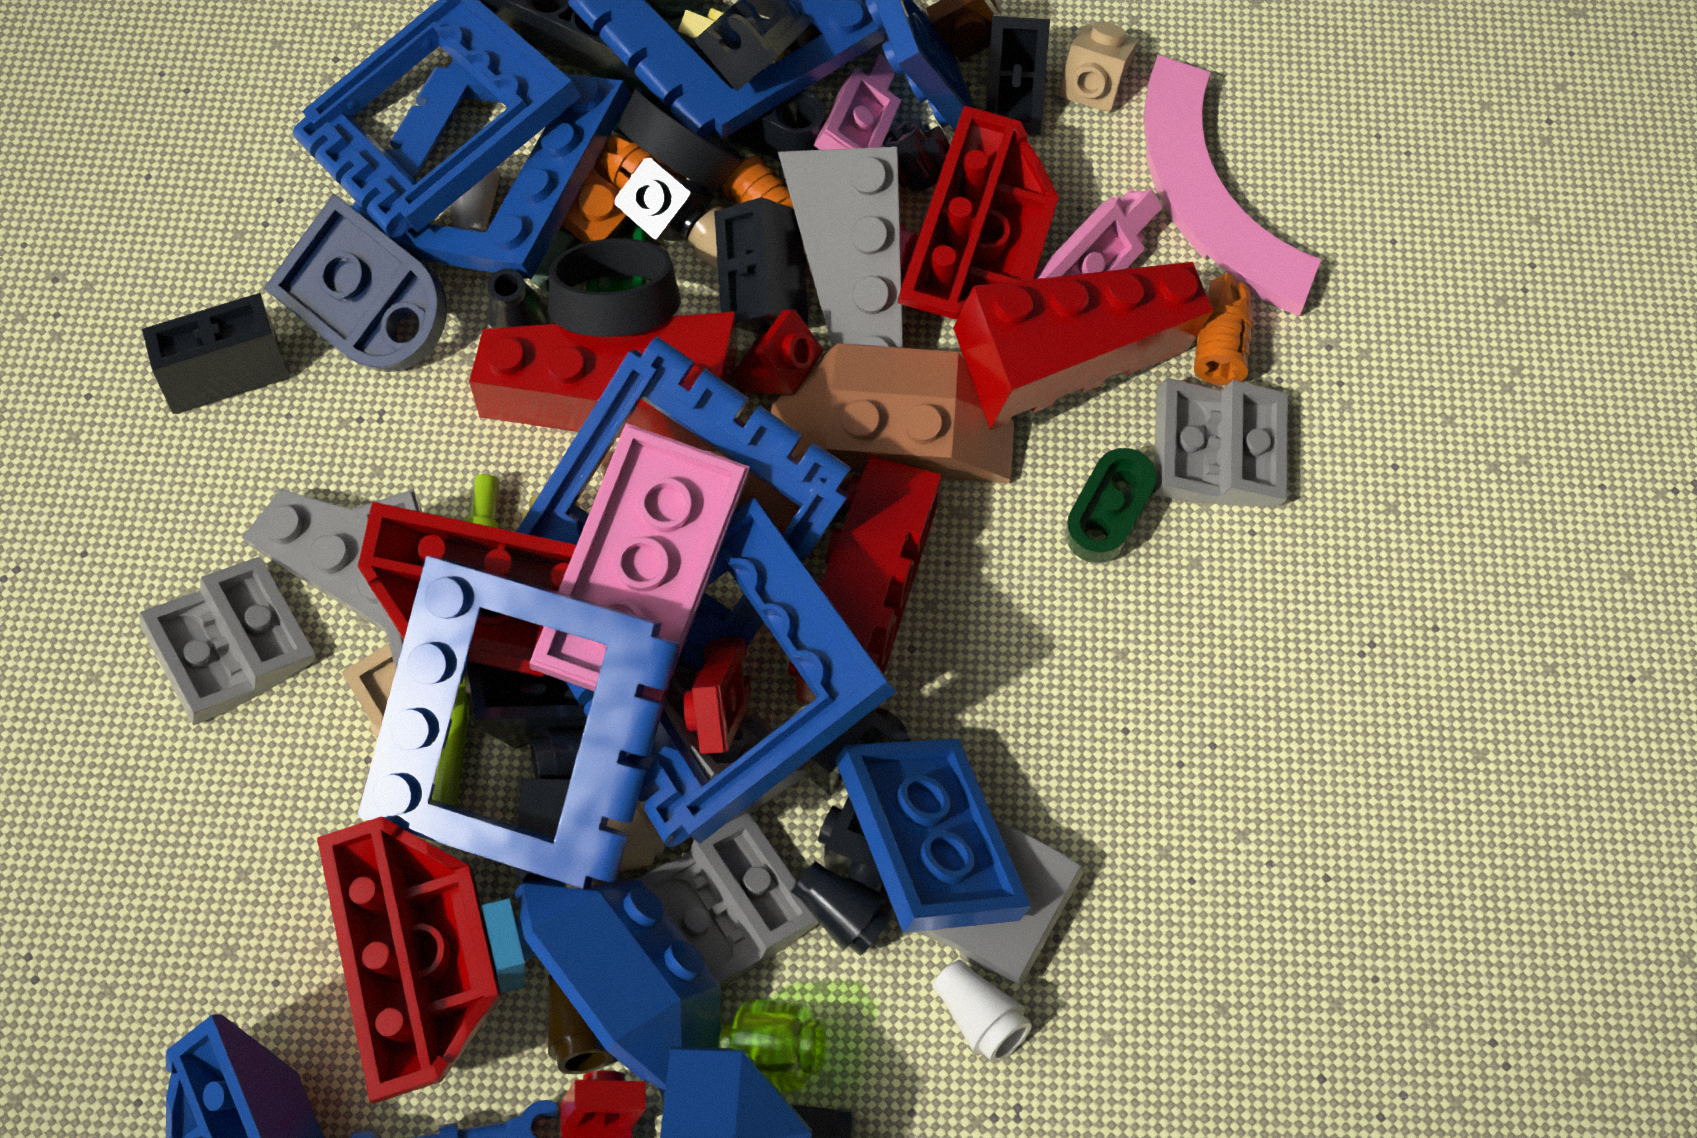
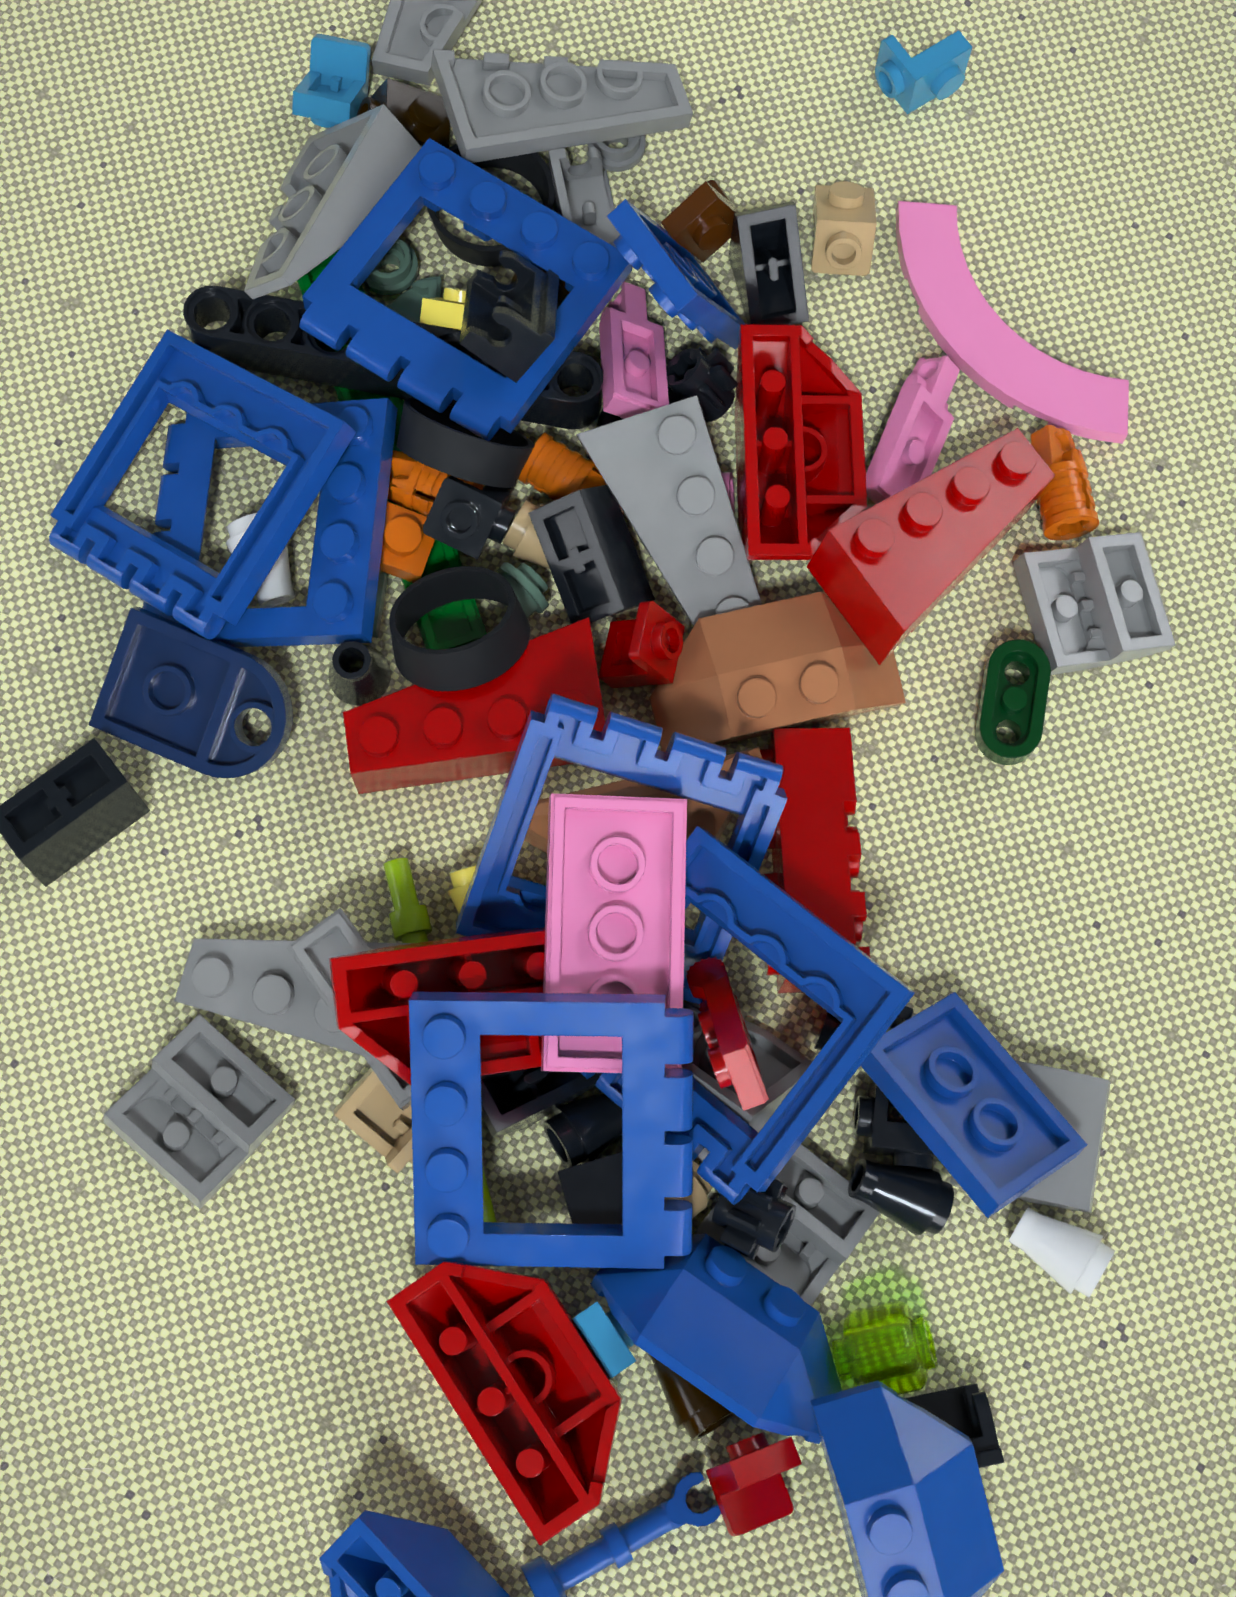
camera: 20 degrees left, 10 degrees up
(689, 874) = (755, 1220): none -> black gear
(692, 281) = (527, 586): none -> sand green plate

